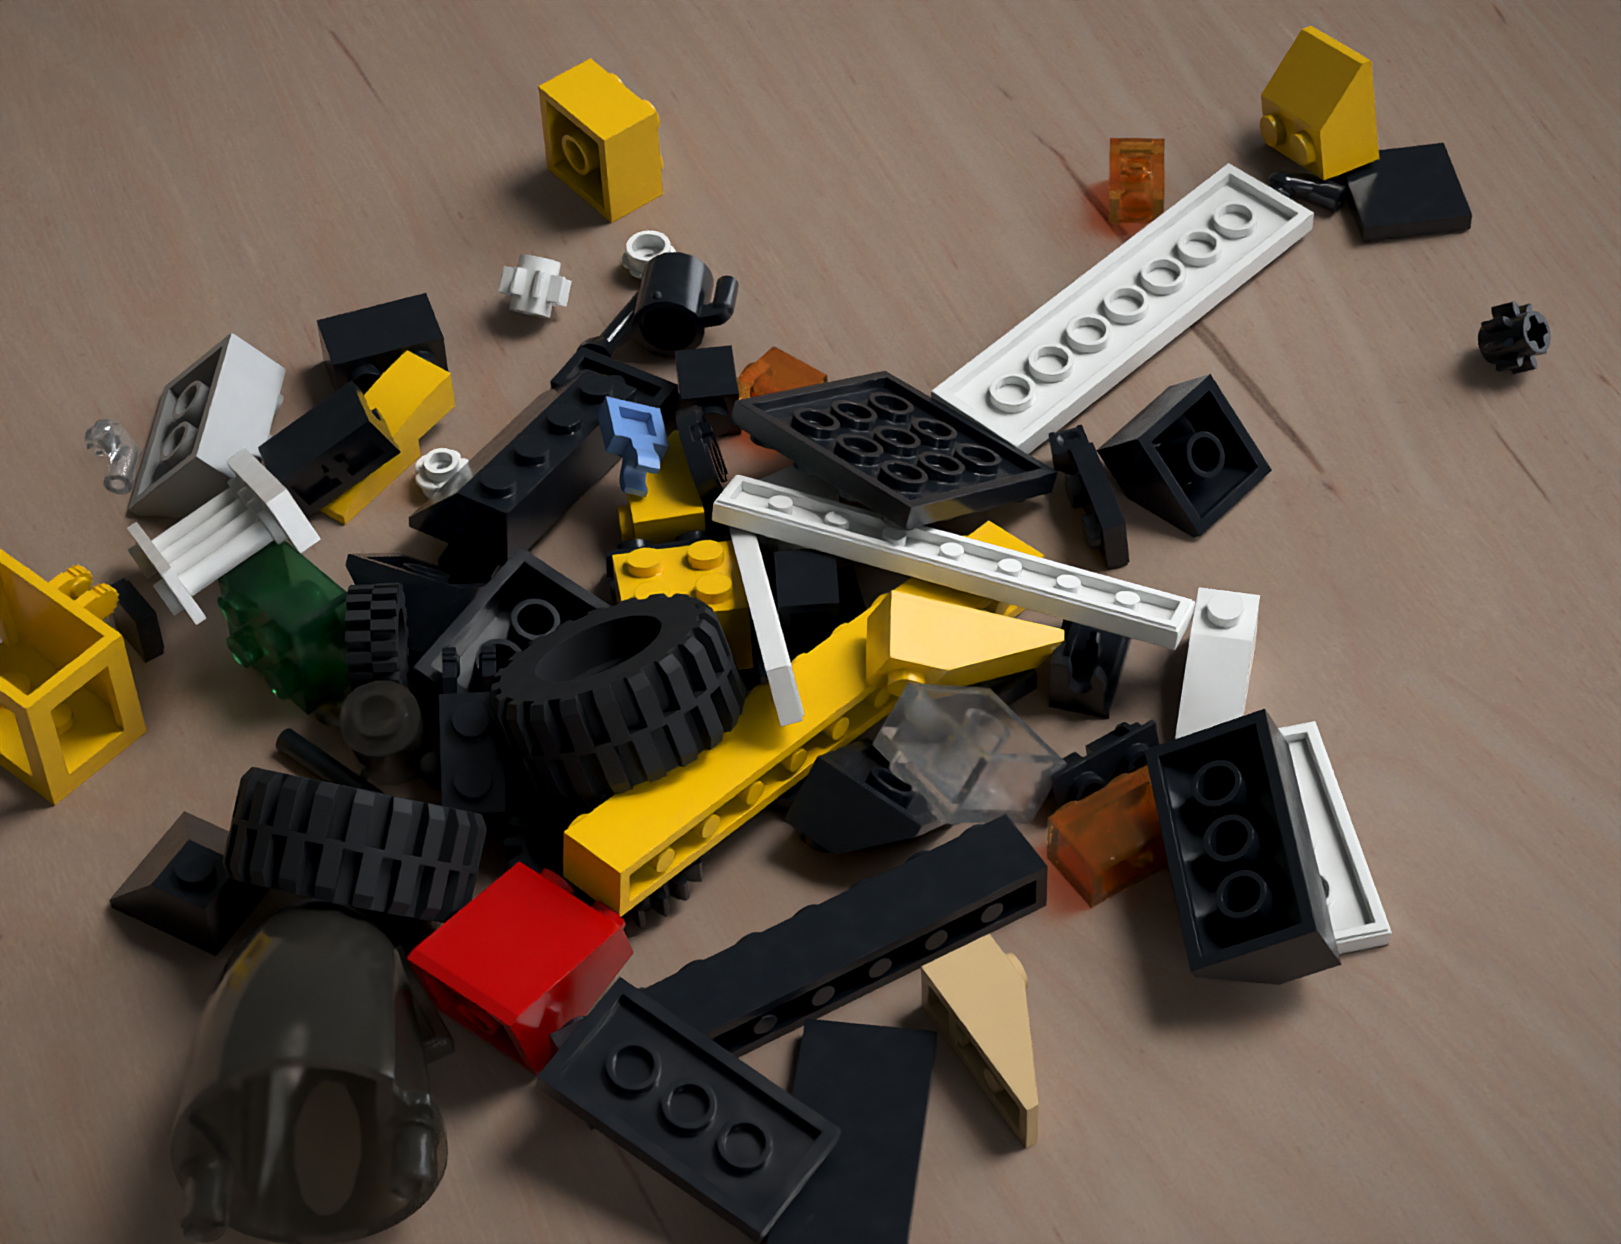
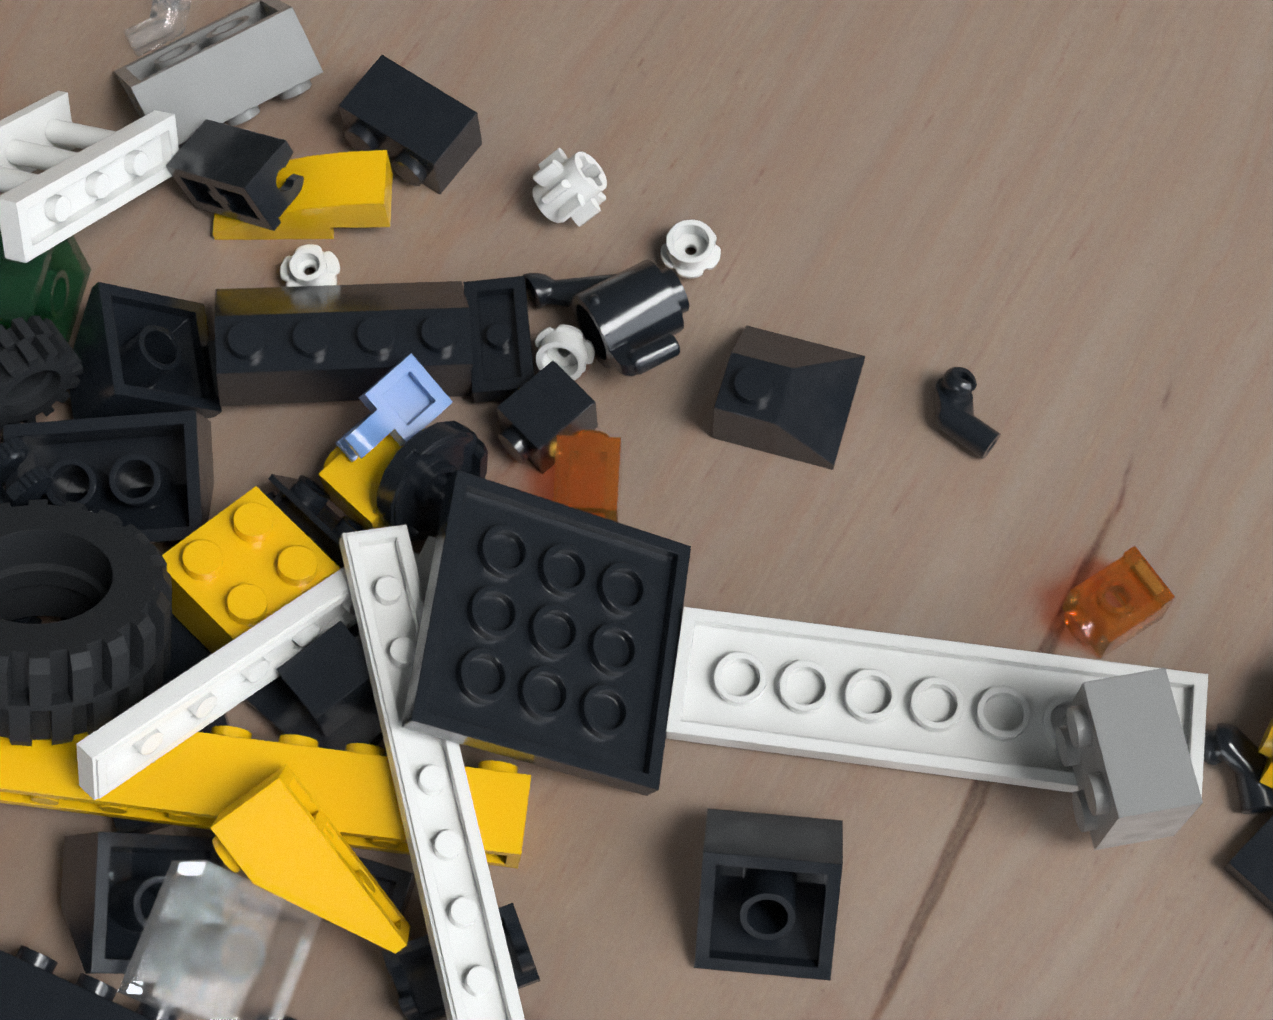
camera: 55 degrees right, 20 degrees up
(601, 139) = (778, 111): yellow brick -> none
(657, 346) = (552, 346): none -> white plate
(816, 272) = (787, 396): none -> black slope
(921, 193) = (956, 412): none -> black arm
(1089, 487) = (663, 834): black hinge -> none
(1264, 200) = (1128, 760): none -> light grey brick

